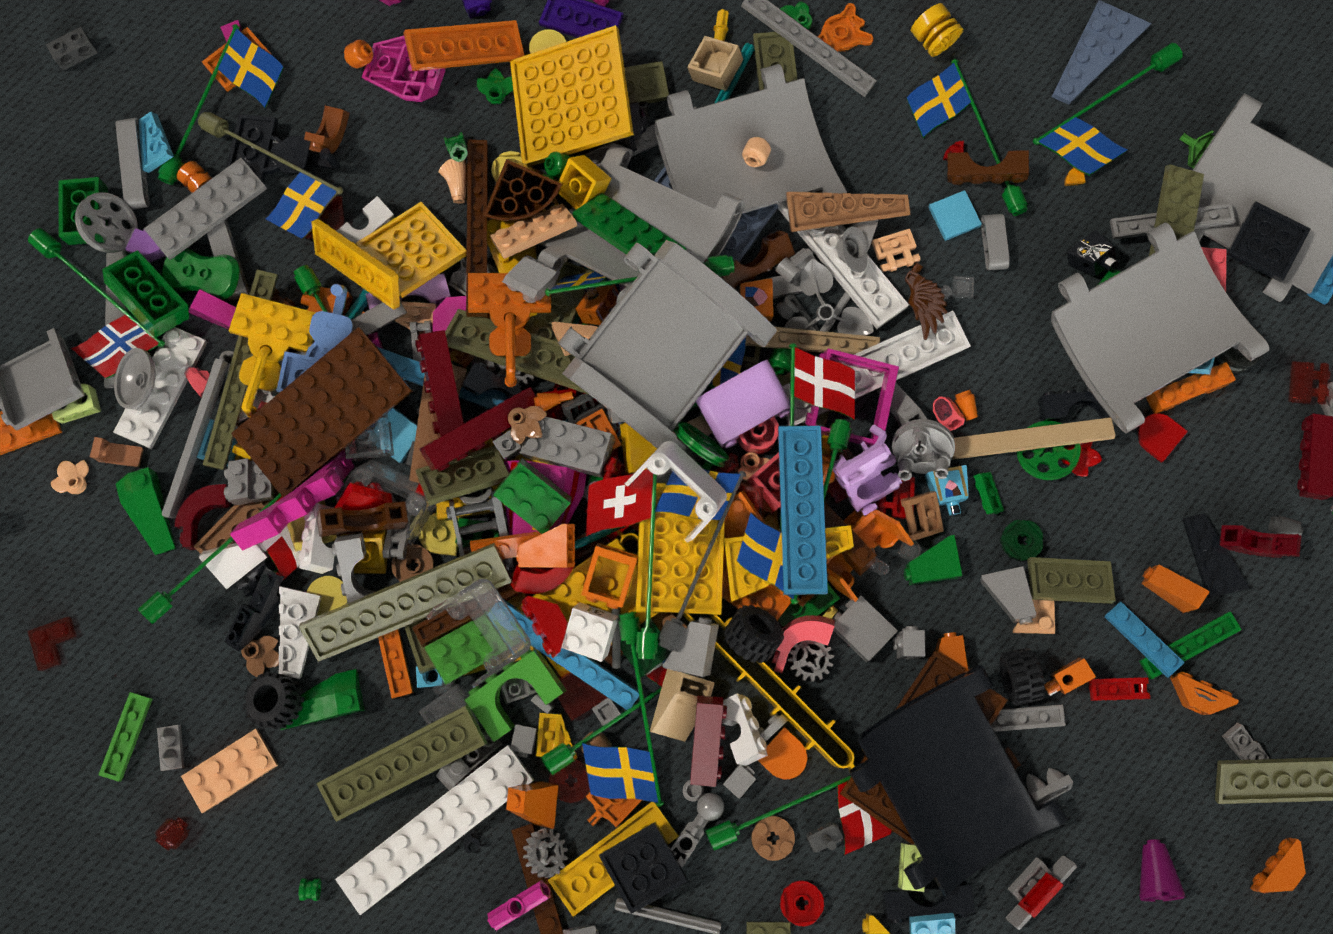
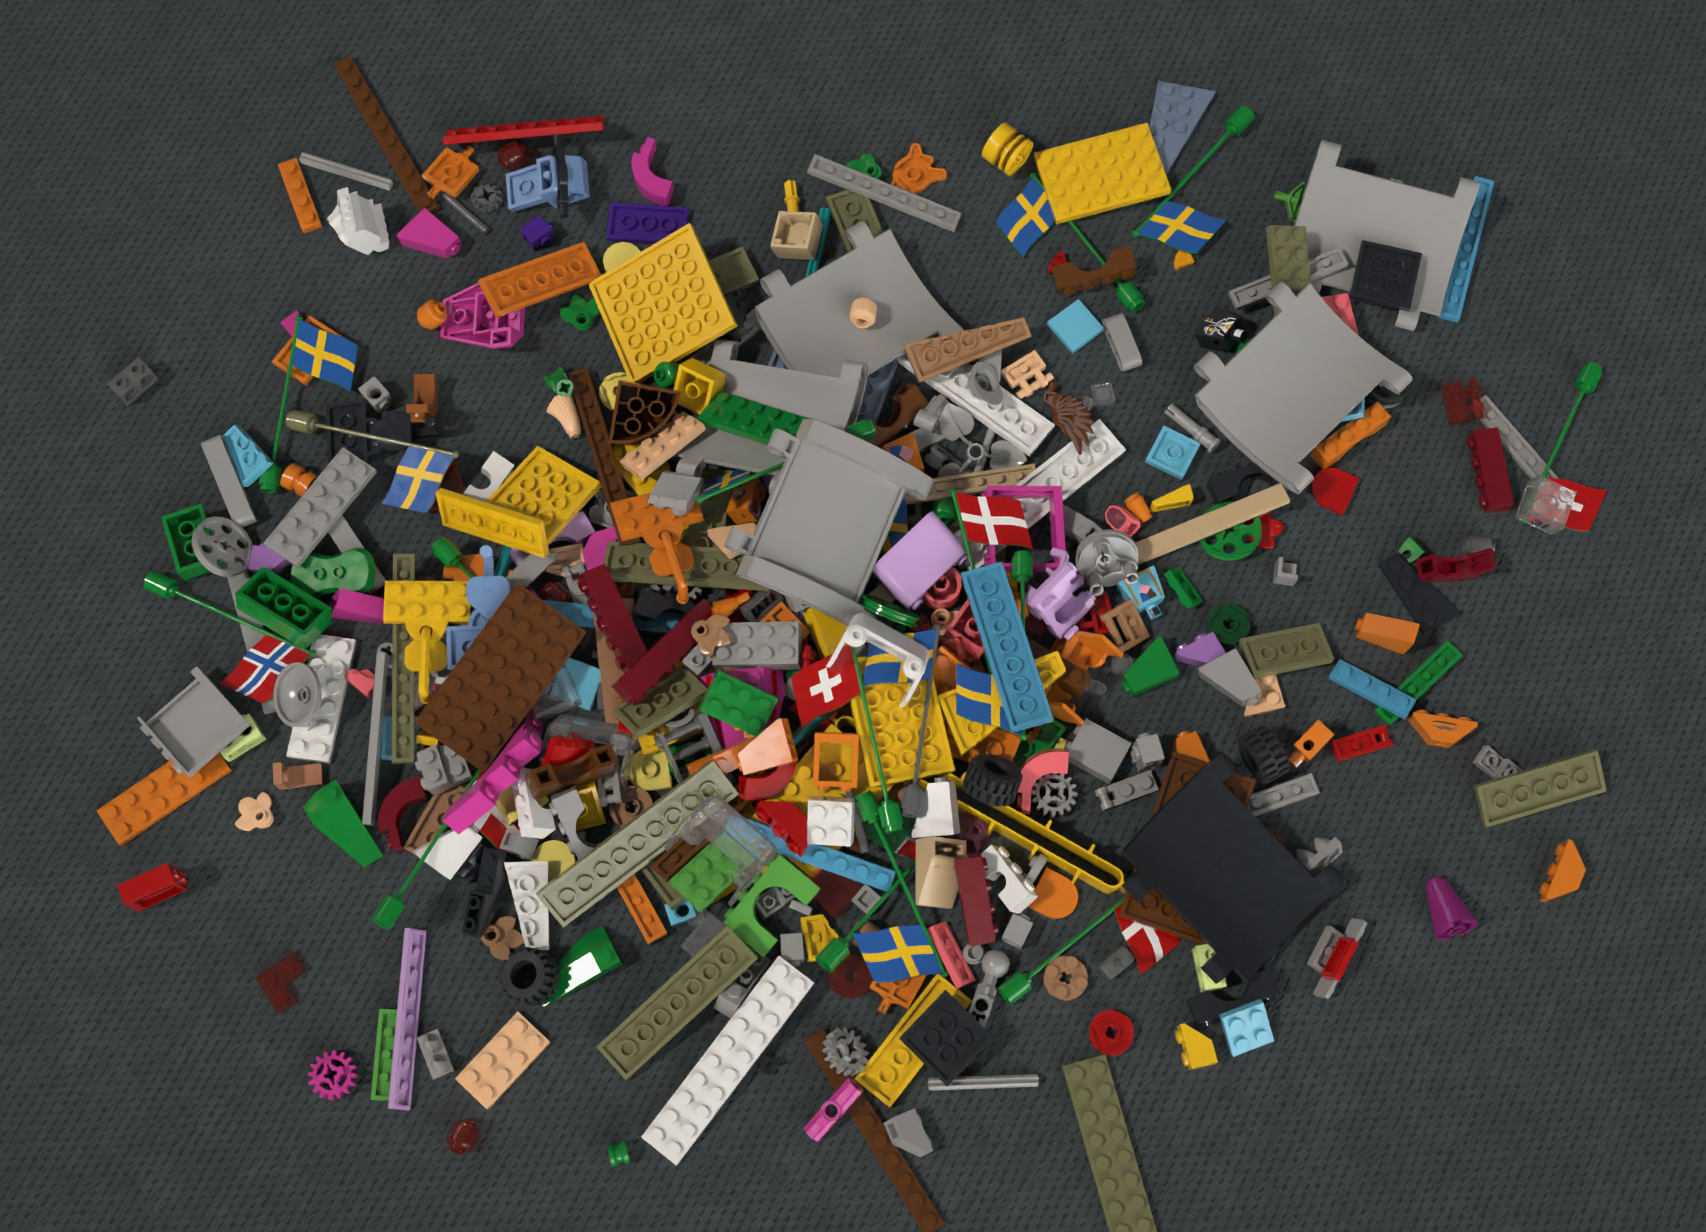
camera: 15 degrees left, 5 degrees down
(71, 752) = (329, 1066): none -> dark pink gear
(152, 709) = (407, 1019): none -> lavender tile
(284, 110) = (372, 388): none -> light grey brick
(300, 576) = (518, 846): none -> light grey brick
(398, 344) = (555, 592): none -> clear red head
(534, 802) = (821, 1006): orange slope -> none
(671, 786) = (951, 955): none -> coral plate
(719, 677) = (967, 833): none -> clear pink plate
(881, 673) = (1127, 790): none -> light grey plate
(988, 560) = (1200, 652): none -> medium lavender slope
(1007, 406) = (1176, 499): none -> yellow slope
(1014, 360) = (1172, 452): none -> medium azure plate
(1020, 75) = (1102, 173): none -> yellow plate
(1044, 348) = (1199, 433): none -> light grey pin
(1090, 504) = (1284, 573): none -> light grey panel
(1223, 513) = (1414, 547): none -> green tile

